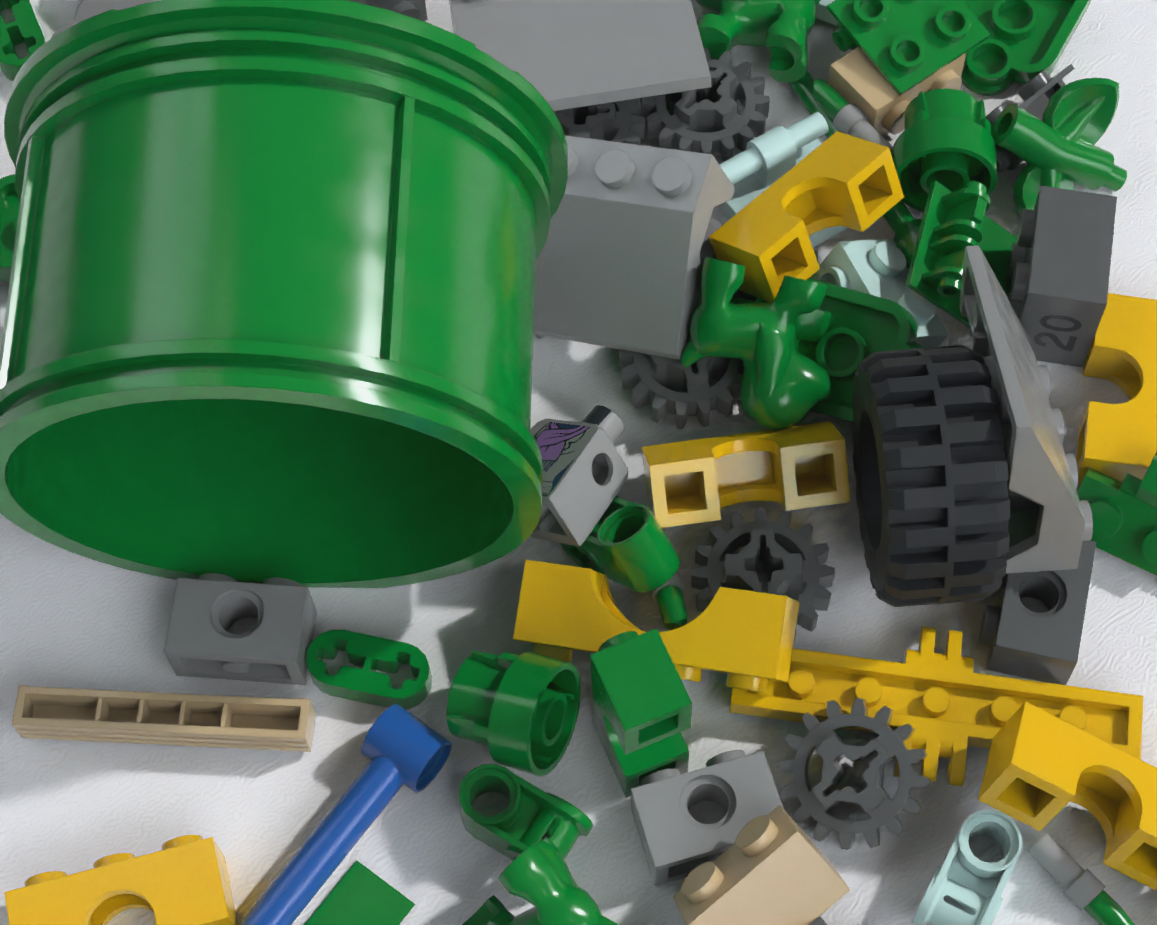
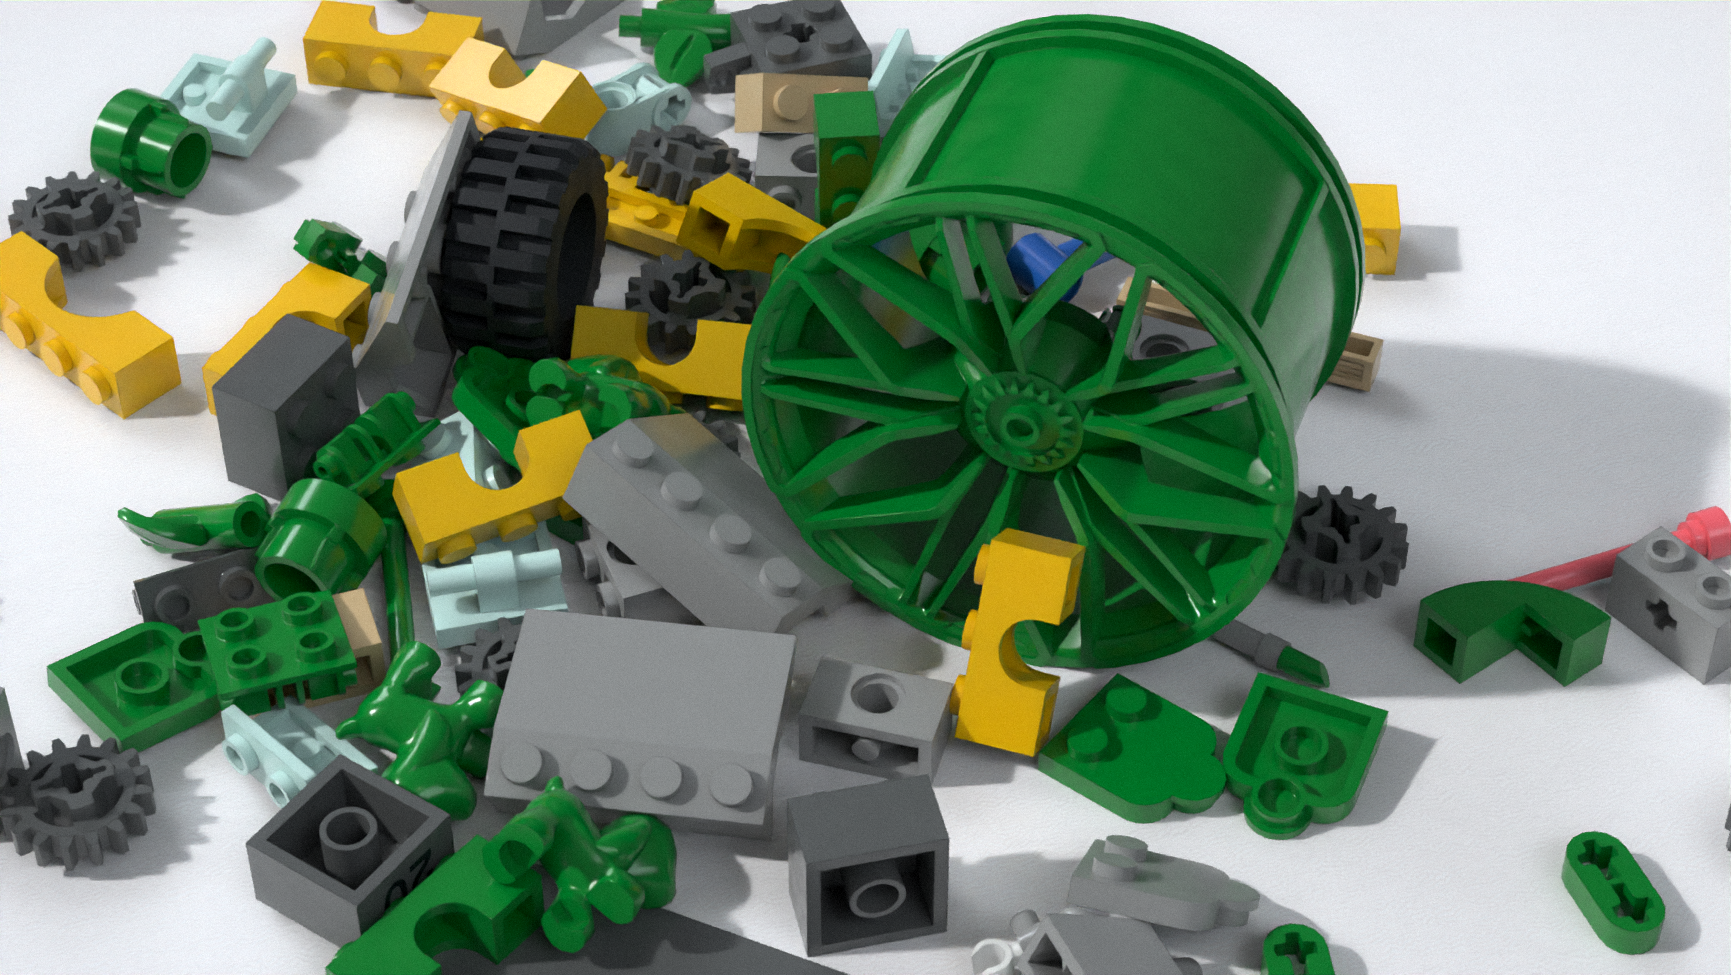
camera: 165 degrees left, 20 degrees down
(846, 116) = (385, 608): piece -> none

